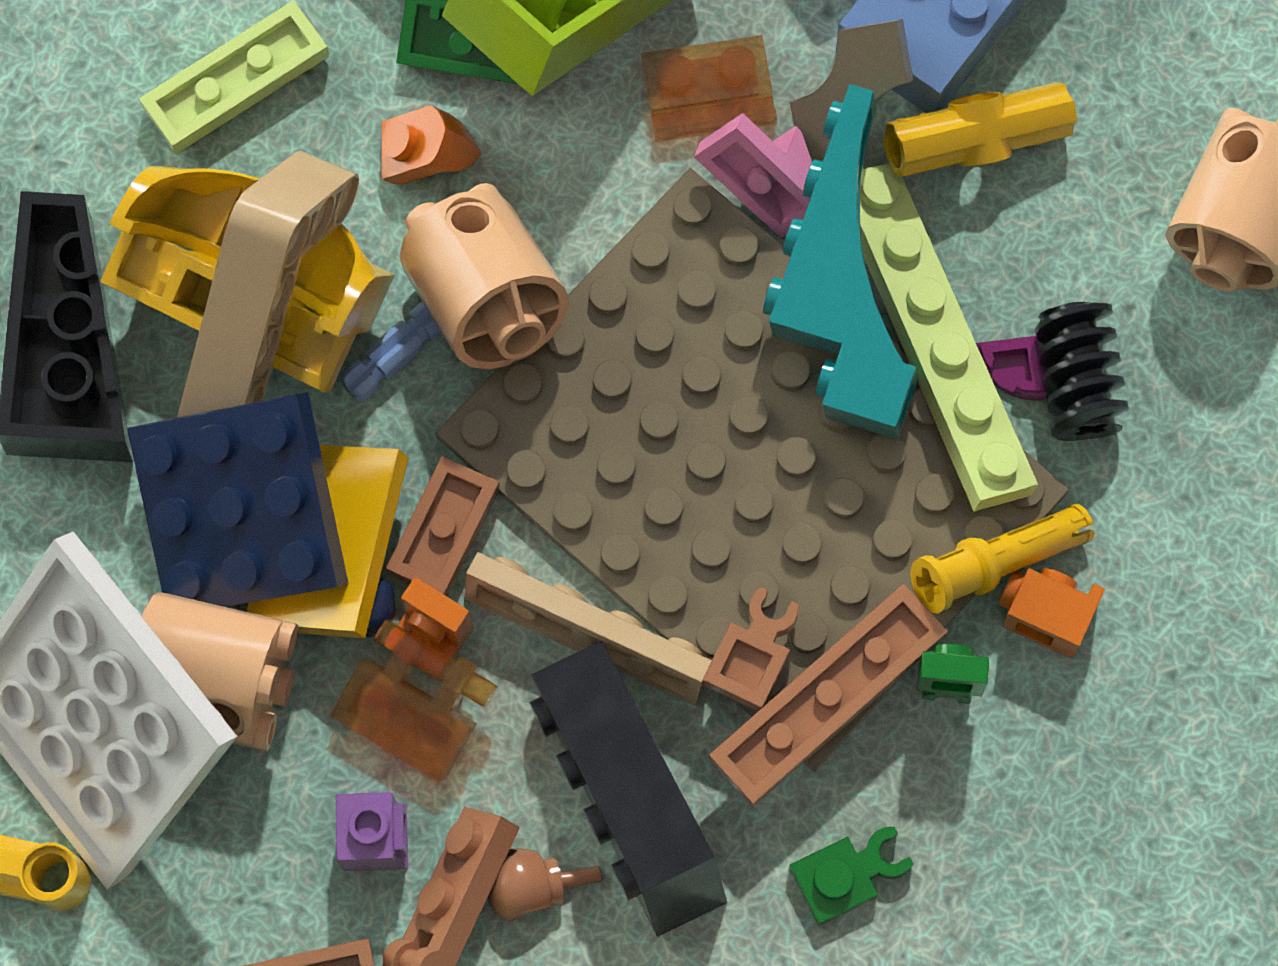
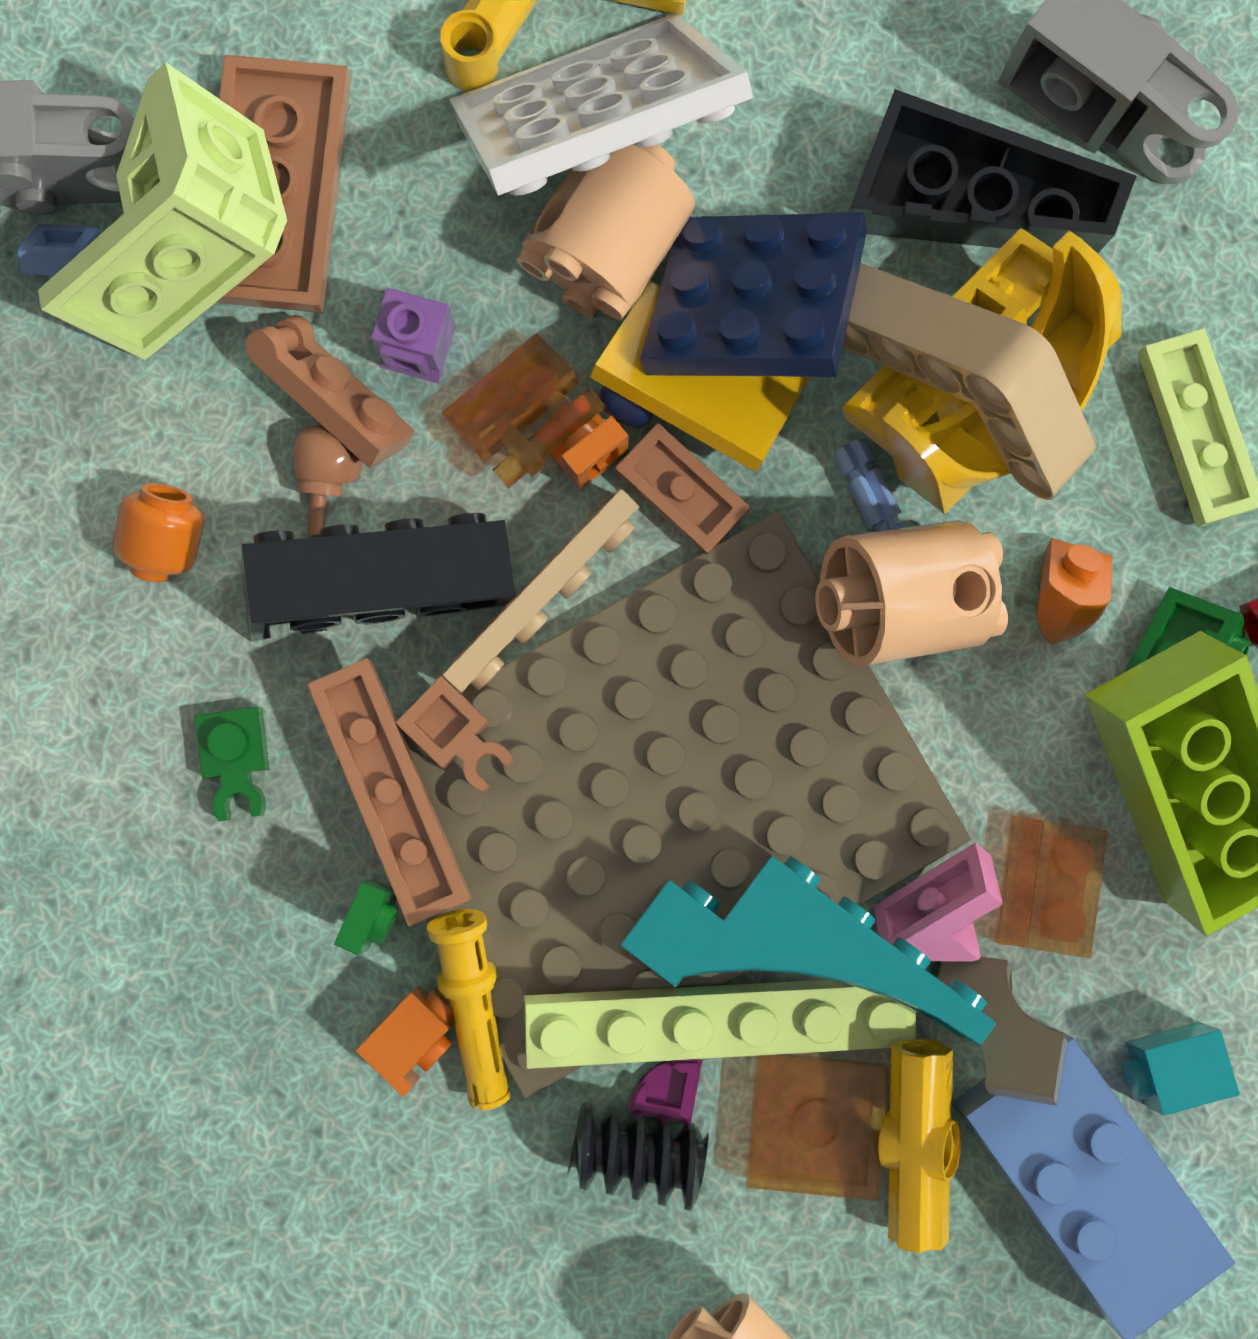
camera: 105 degrees right, 10 degrees up
(997, 225) = (816, 1126): none -> clear orange plate

